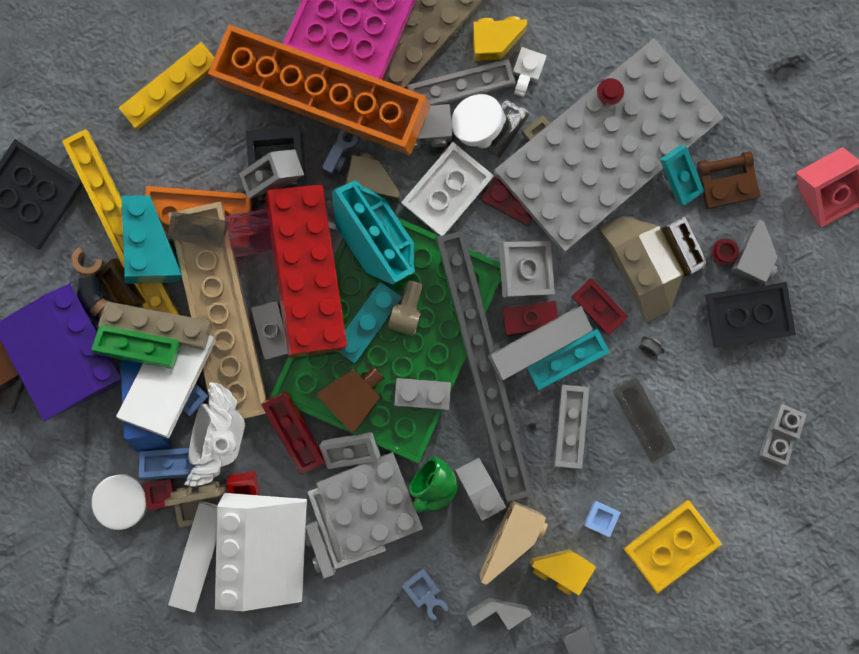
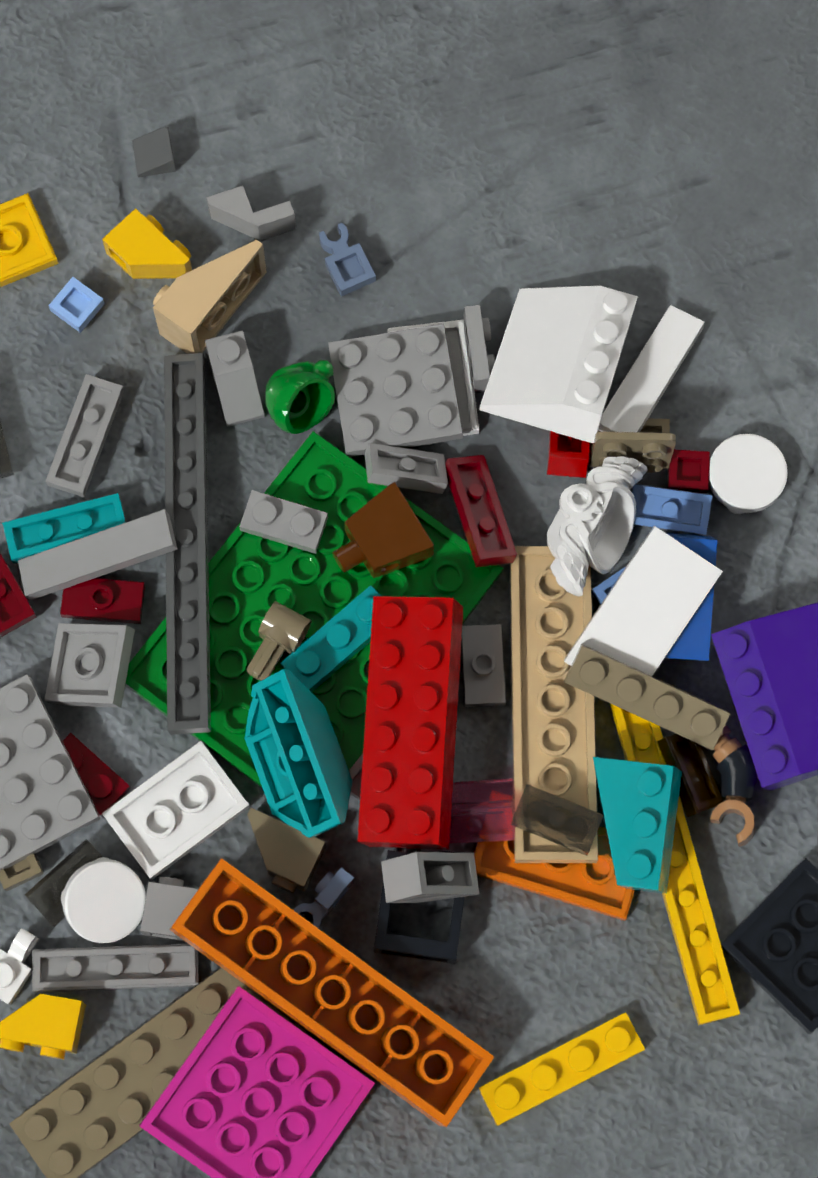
camera: 170 degrees left, 10 degrees down
(136, 346) = (677, 667): green plate -> none

